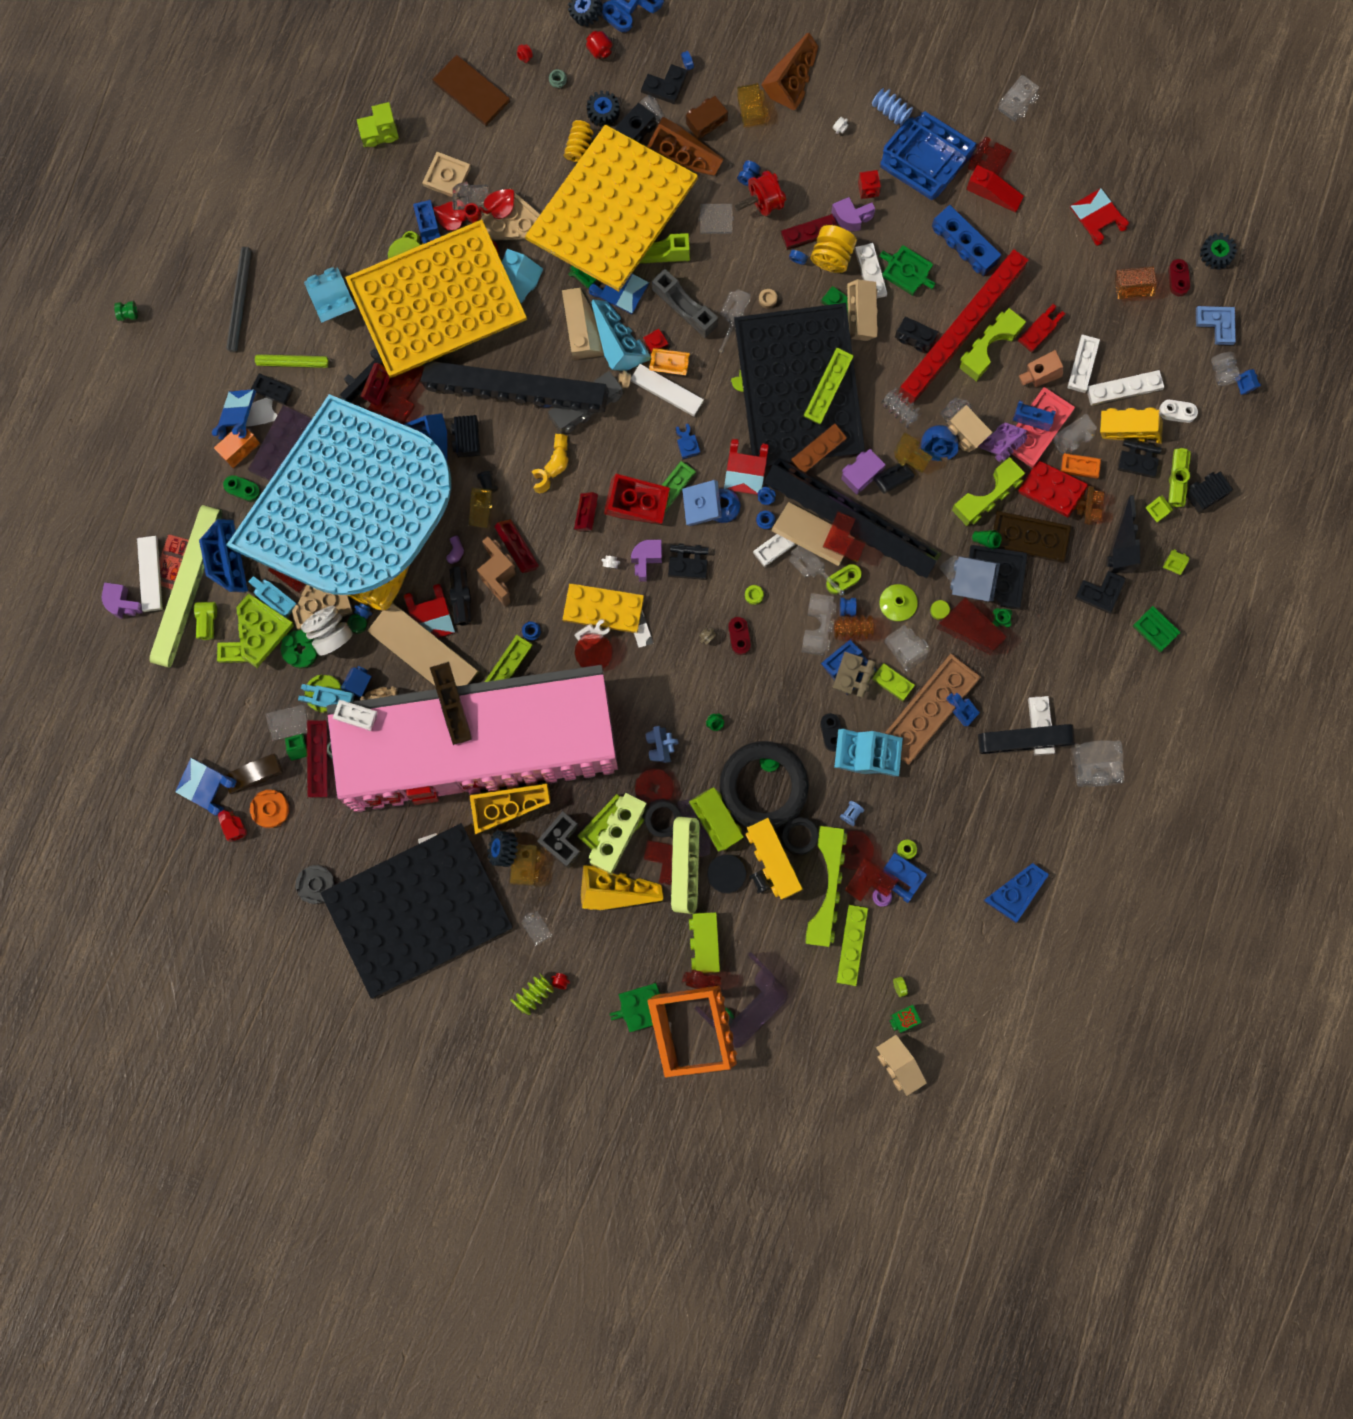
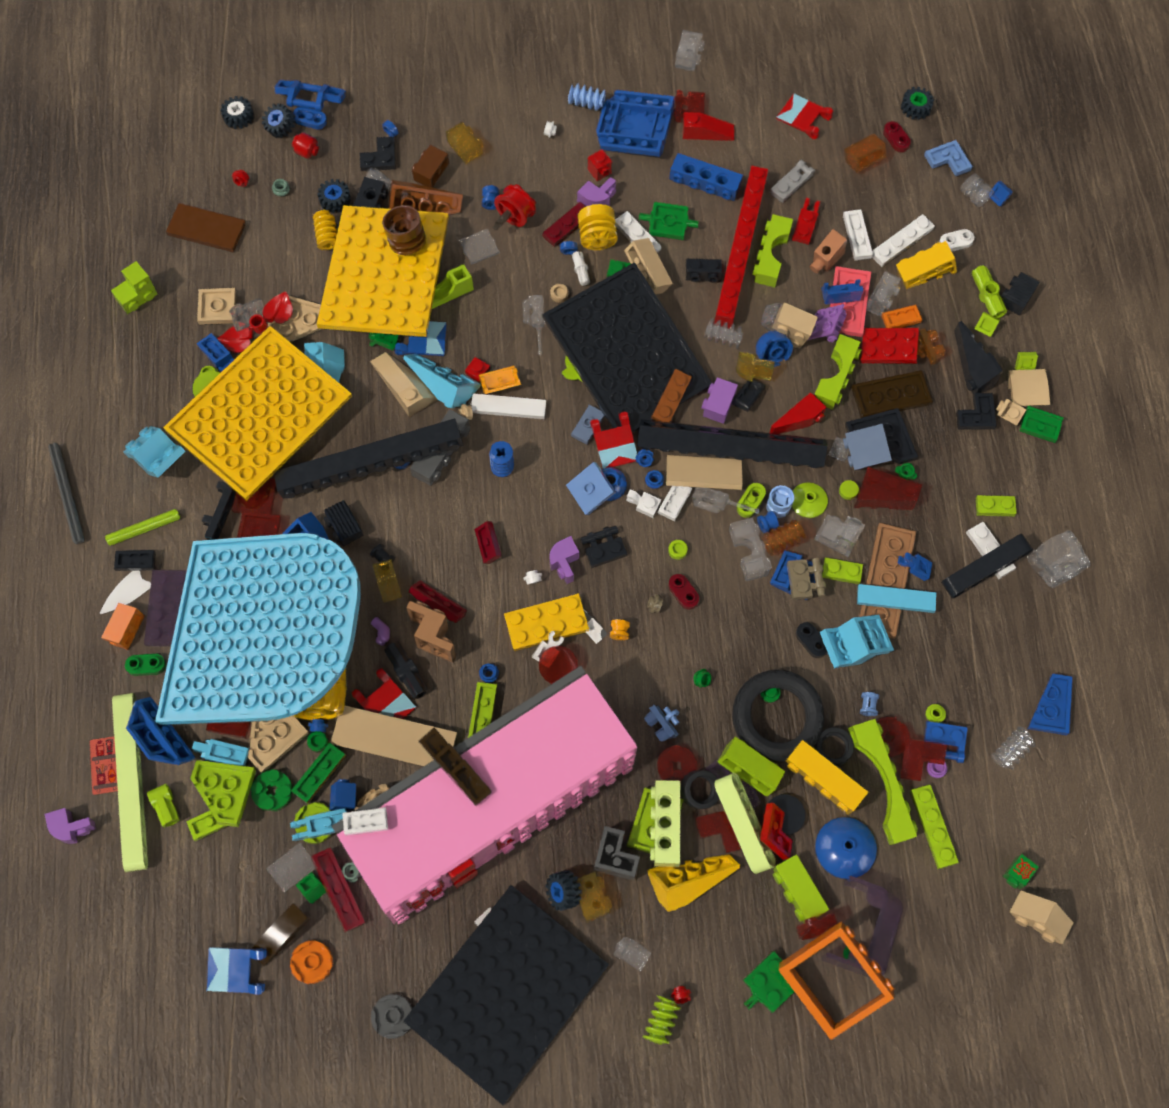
camera: 30 degrees left, 10 degrees down
(149, 574) = (87, 786): white tile -> none
(231, 826) = (281, 997): red rock -> none
(235, 413) = (108, 595): blue flag -> none
(326, 630) = (292, 759): white wheel -> none
(347, 652) = (318, 773): none -> green plate
(375, 384) = (235, 512): dark red plate -> none
(502, 806) = (545, 847): yellow wedge -> none
(555, 466) = (439, 514): yellow piece -> none
(633, 439) = (501, 459): none -> blue piece
(636, 500) = (529, 511): red slope -> none
(644, 178) = (404, 230): none -> reddish brown wheel
(663, 645) = (619, 629): none -> light orange wheel
(672, 293) = (470, 320): dark grey arch -> none
(677, 481) = (555, 489): bright green tile -> none
(687, 444) = (550, 445): blue plate -> none
(704, 885) = (772, 832): none -> red plate
(723, 442) = (583, 430): none -> sand blue plate
(746, 539) = (645, 504): none -> white plate
(761, 881) = (821, 806): black bush -> none
(762, 941) = (835, 856): none -> blue dish
(788, 78) = (485, 107): dark orange wedge -> none
(799, 283) = (581, 268): none -> white axle
(828, 386) = (654, 338): lime plate -> none
(838, 539) = (731, 466): clear red plate -> none
(868, 593) = (780, 501): none -> light blue wheel
(900, 986) = (999, 843): lime tile -> none
(927, 730) = (896, 598): none -> medium azure tile
(934, 519) = (800, 416): none -> red slope
(959, 912) = (1013, 748): none -> clear piece
(990, 539) = (858, 410): green cone -> none
(1049, 280) = (792, 181): none -> light grey plate
(1069, 686) = (995, 505): none -> lime plate
(1133, 603) = (1010, 411): none -> tan bracket
(1136, 463) = (947, 296): black plate -> none
(1164, 588) = (1029, 387): none -> tan slope

